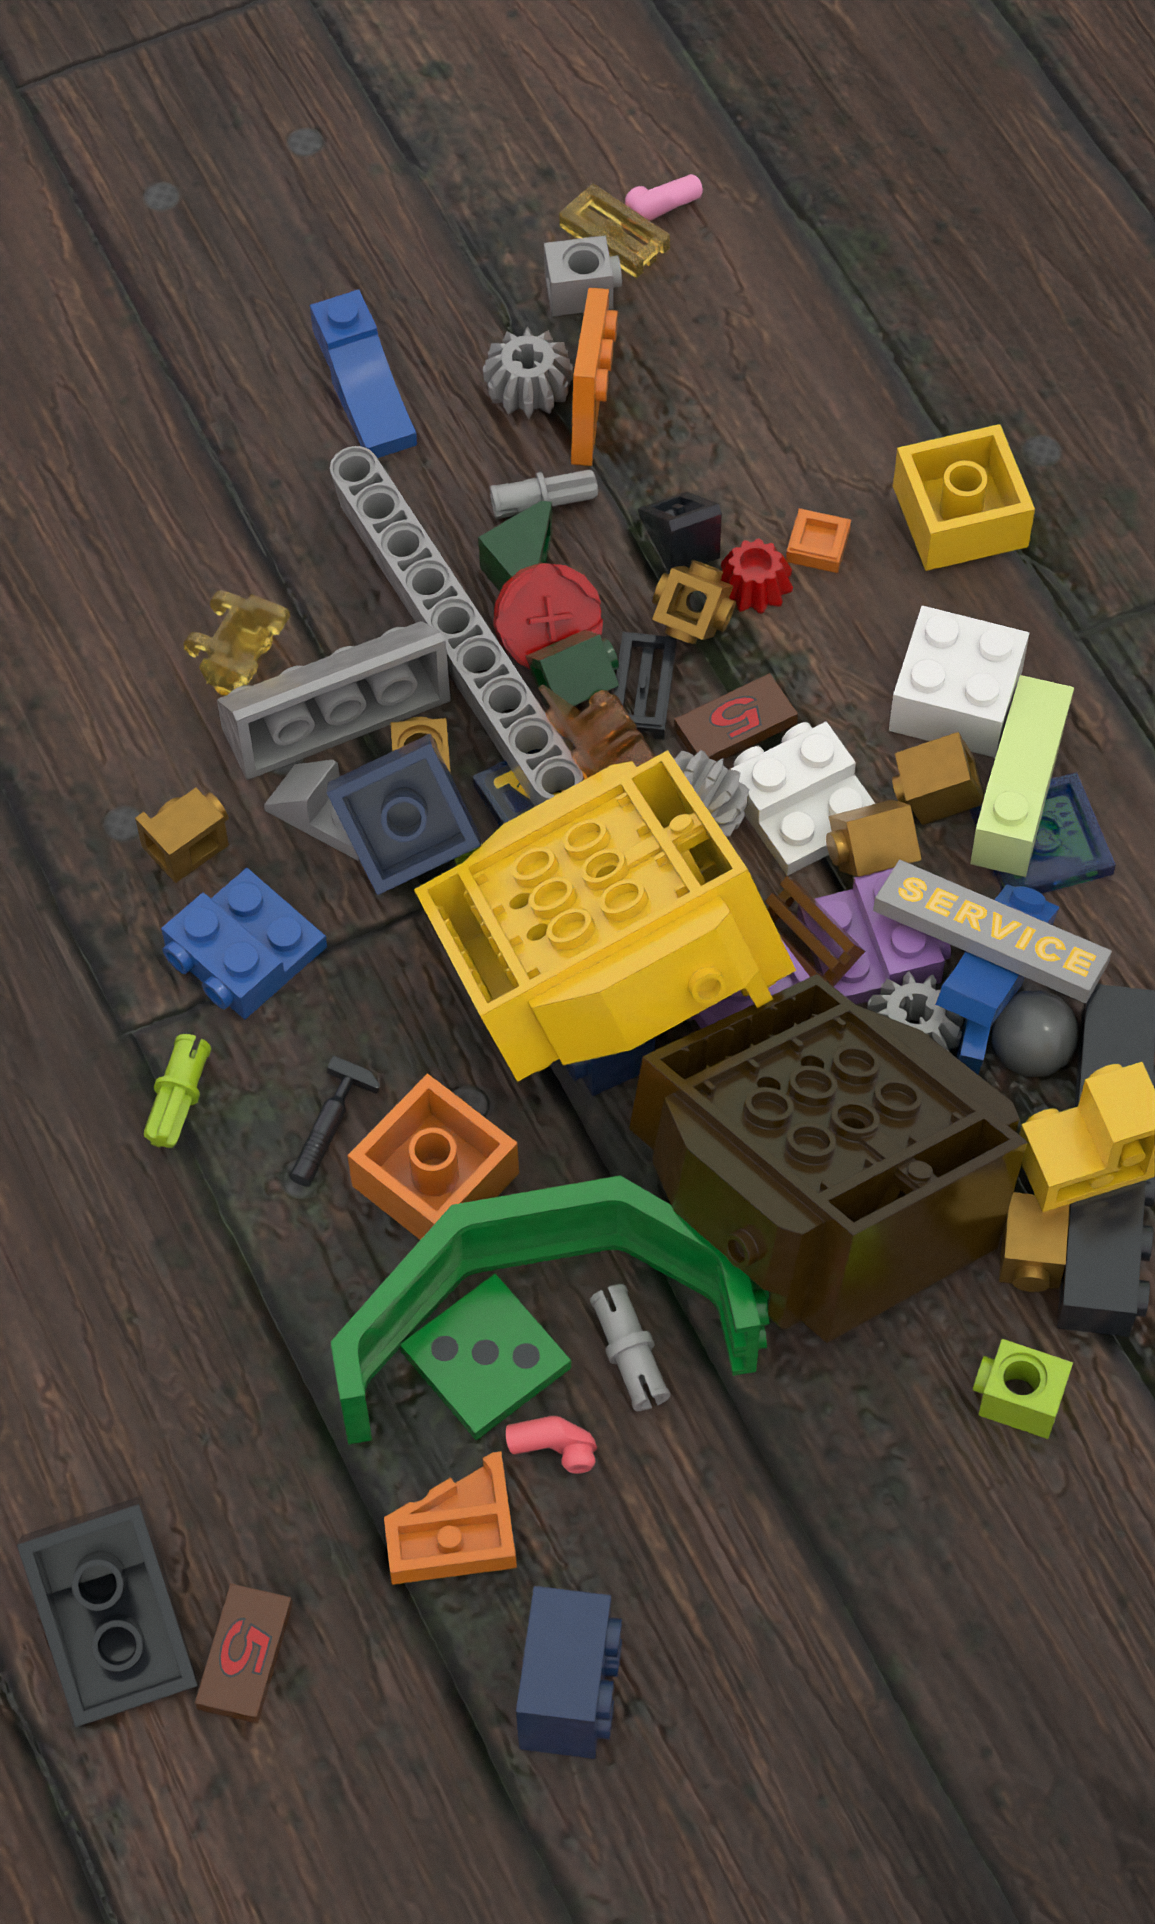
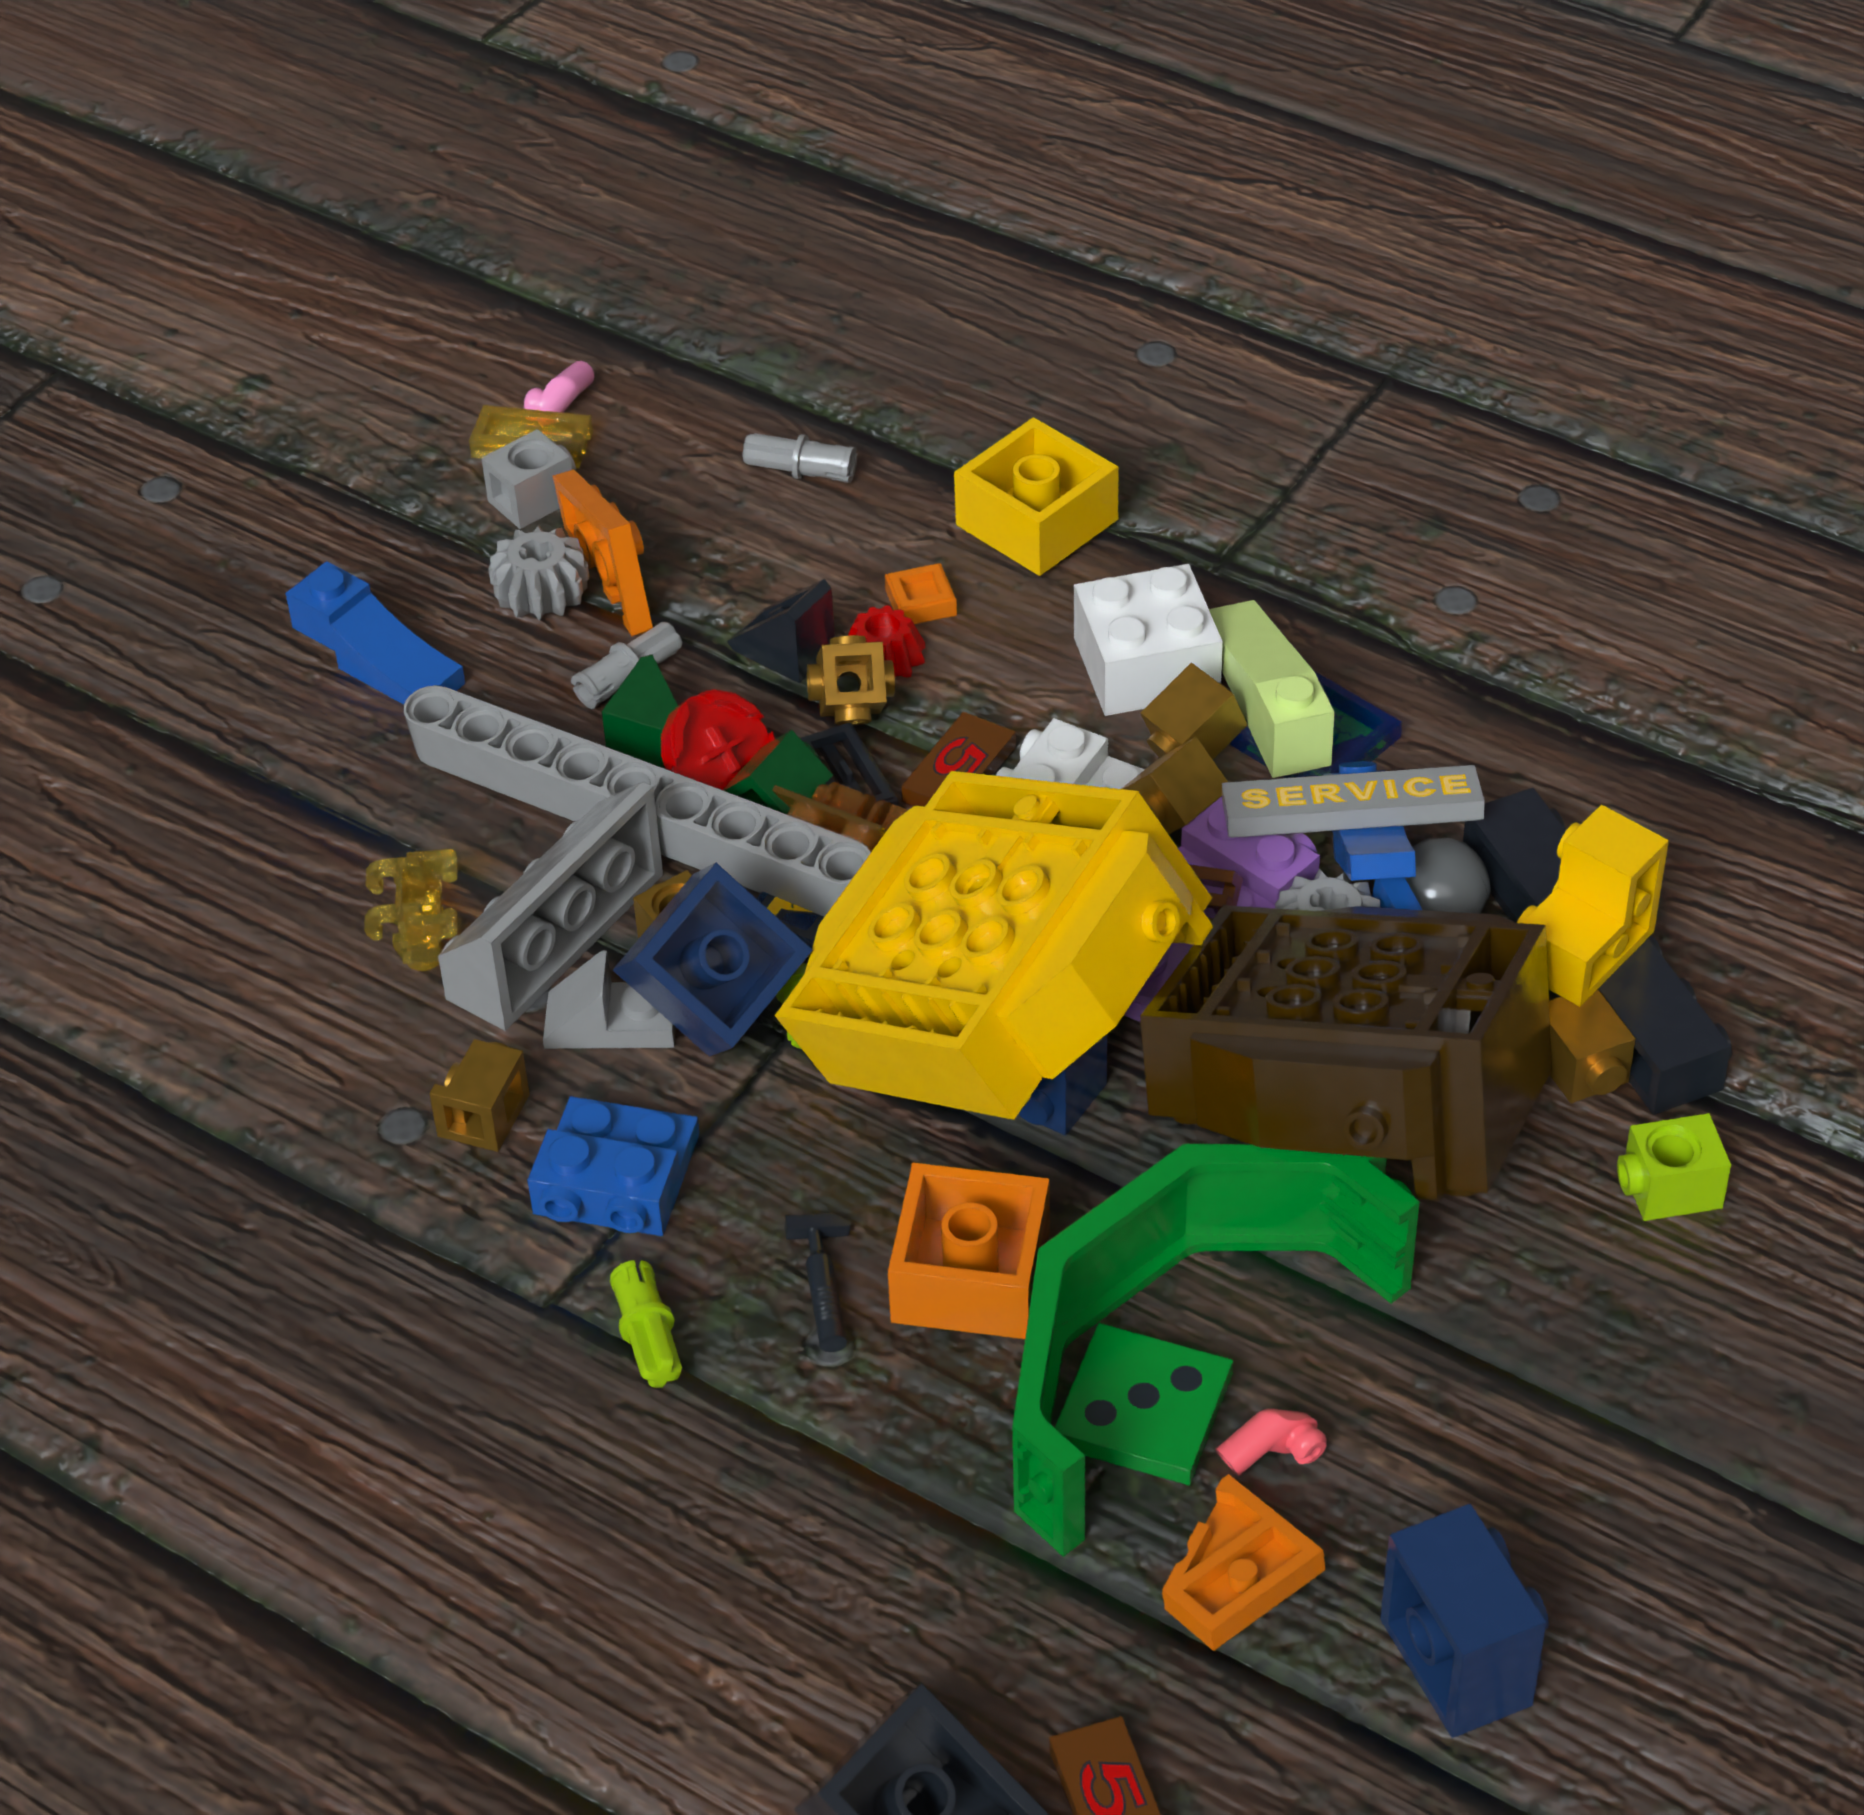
camera: 30 degrees left, 15 degrees down
(630, 1347) = (1281, 1321): light grey pin -> none
(811, 358) = (801, 457): none -> light grey axle

